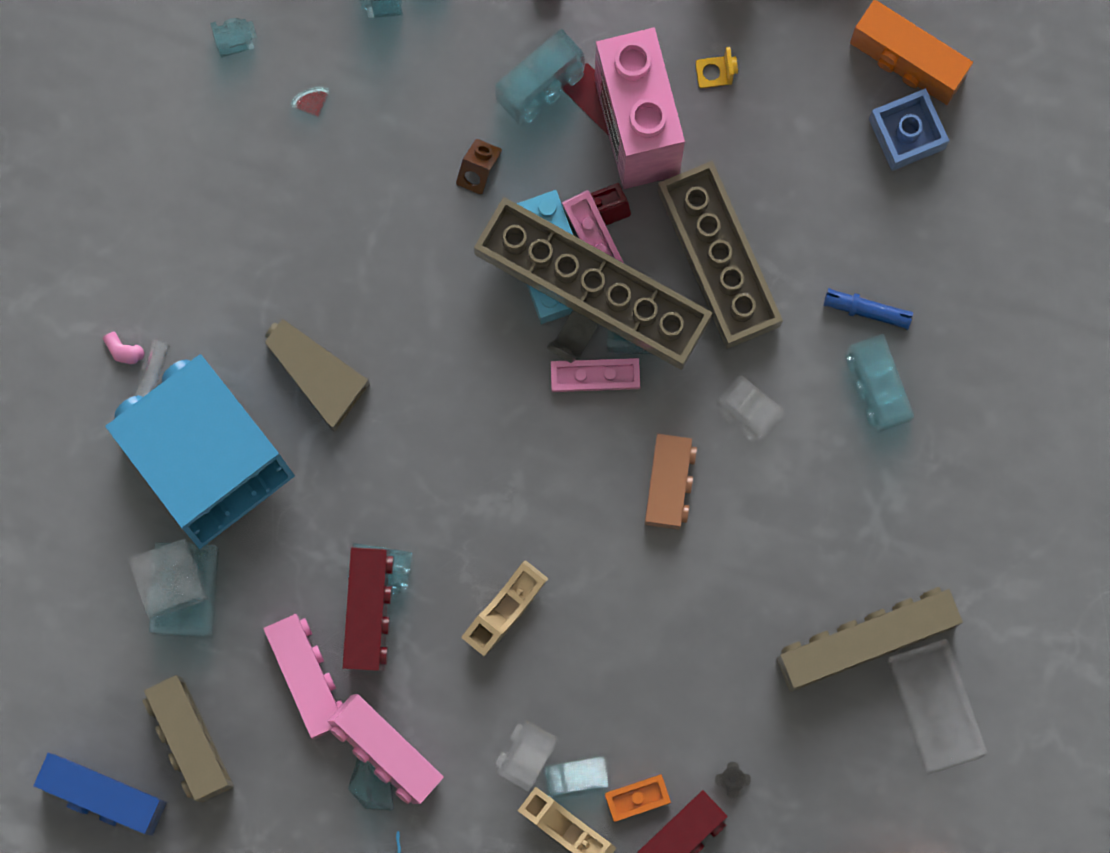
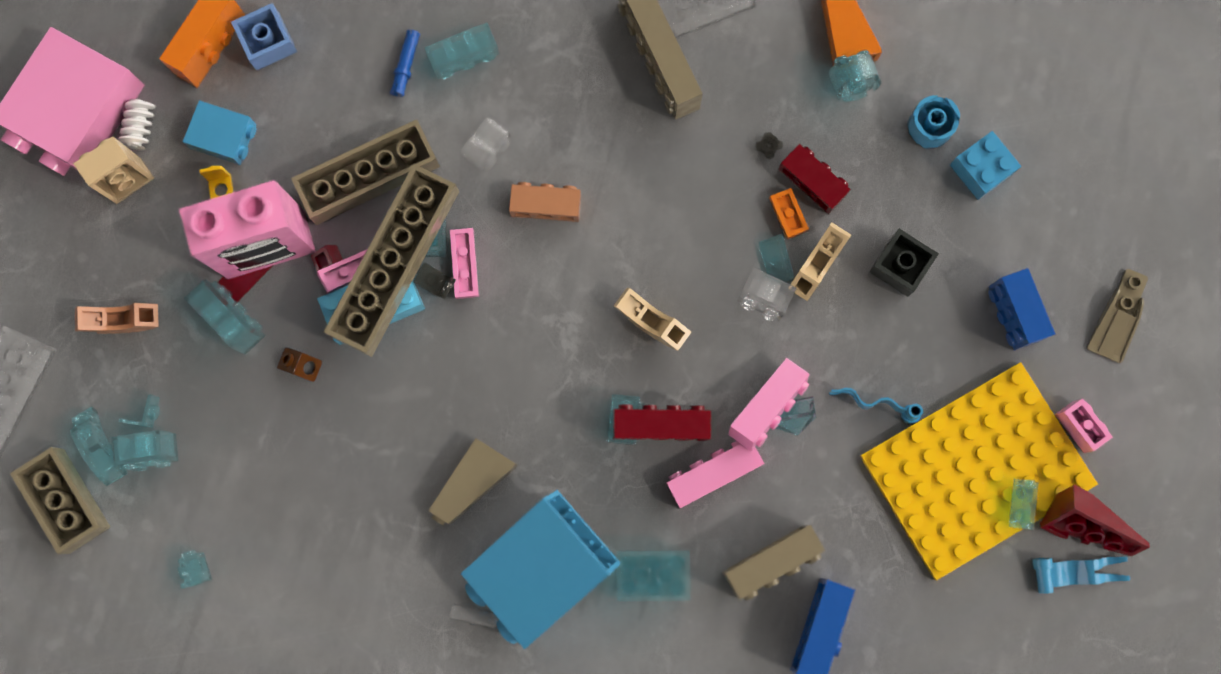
camera: 90 degrees left, 0 degrees up
(123, 353) = (460, 643): bright pink arm -> none
(168, 578) = (648, 586): clear brick -> none
(311, 100) = (247, 502): clear light blue tile -> none
(783, 72) = (220, 132): none -> dark azure brick

